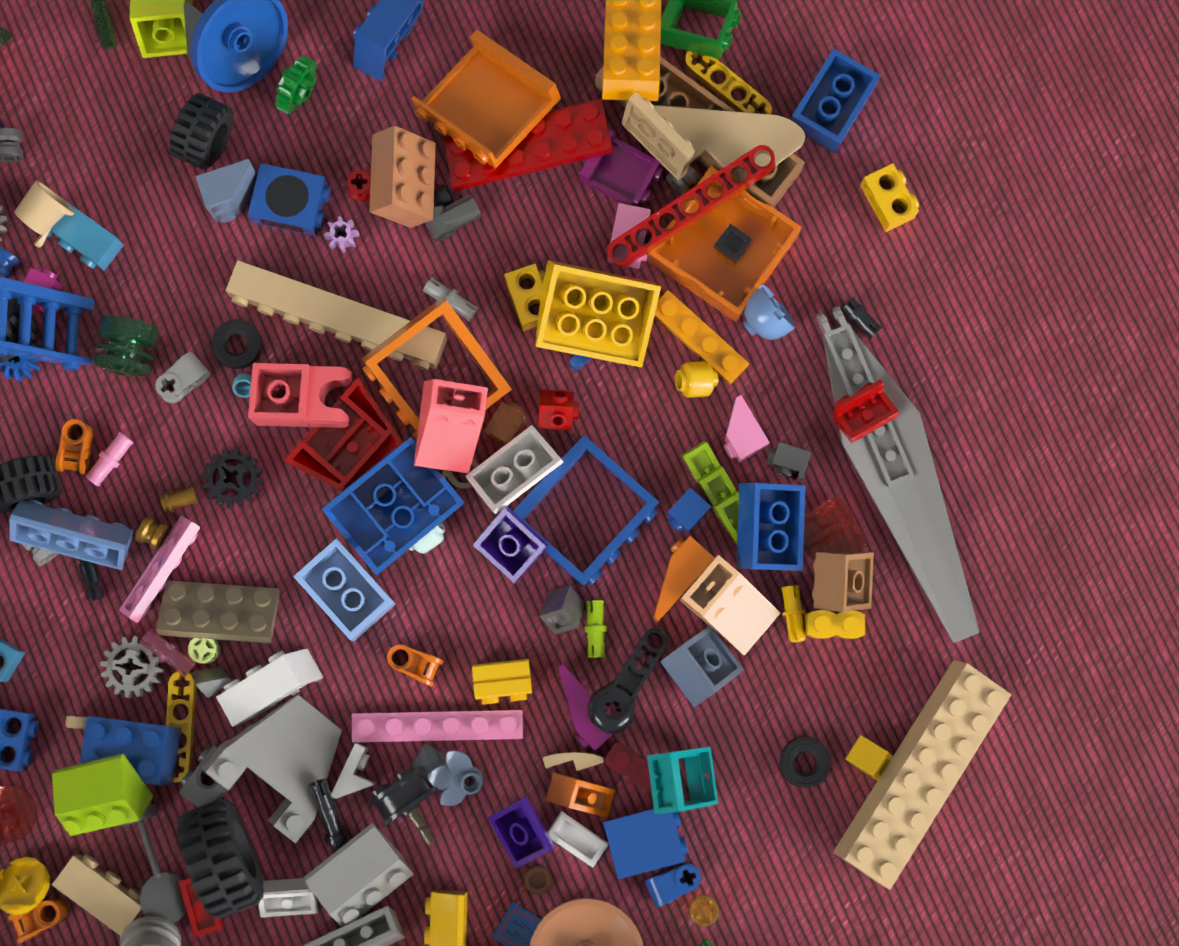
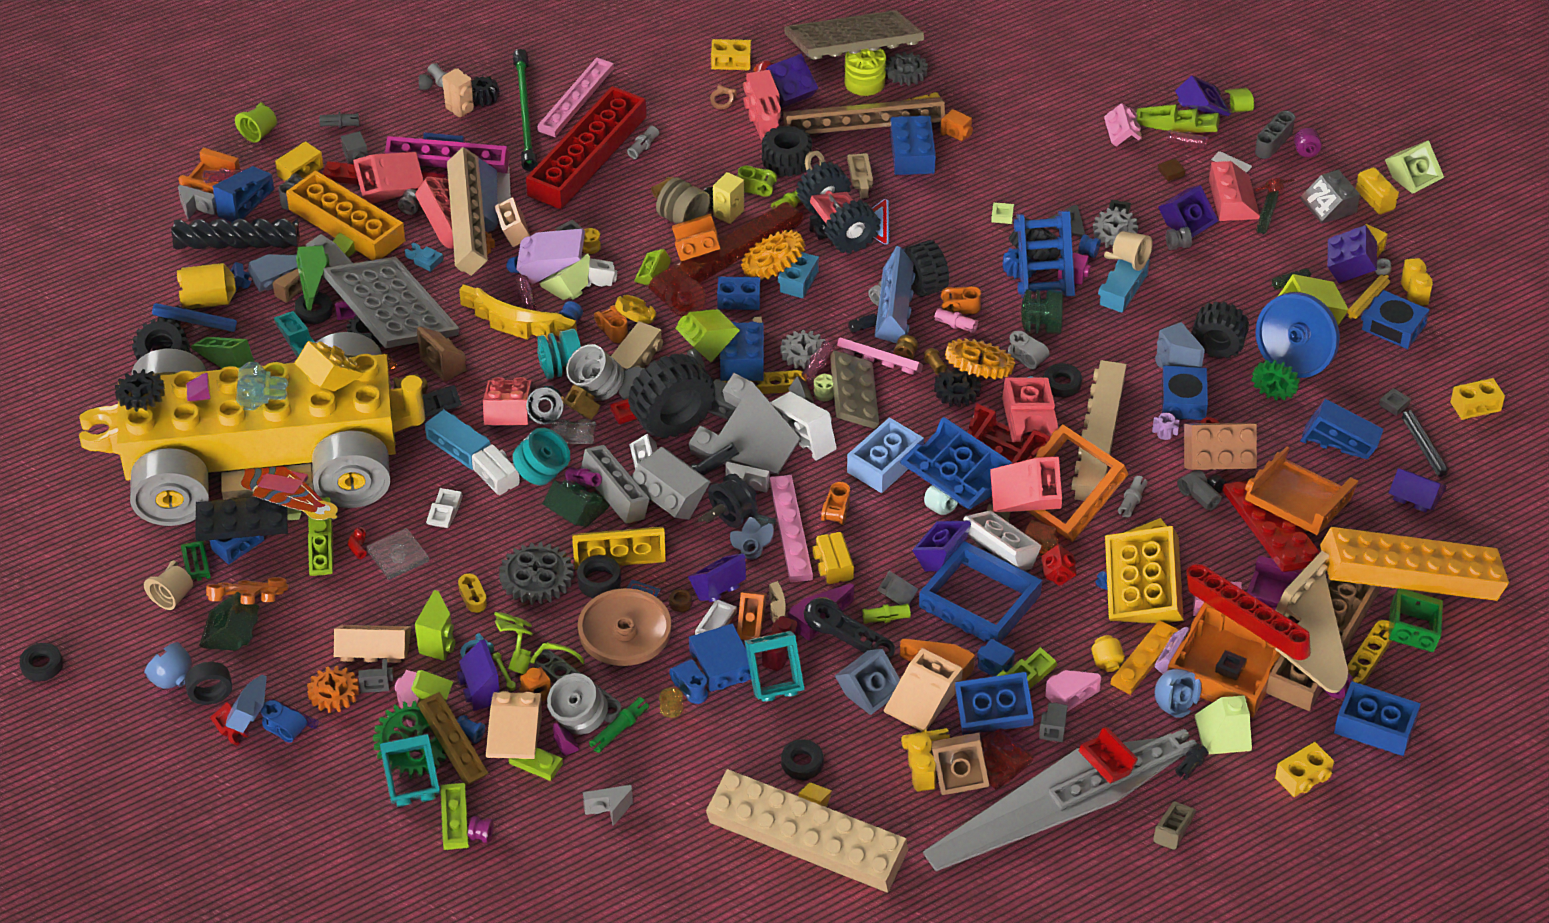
camera: 85 degrees right, 35 degrees down
(193, 460) = (993, 361): none -> light orange gear
(703, 305) = (1170, 649): none -> lavender slope
(816, 271) = (1225, 726): none -> yellowish green slope
(957, 353) = (1172, 826): none -> dark tan slope

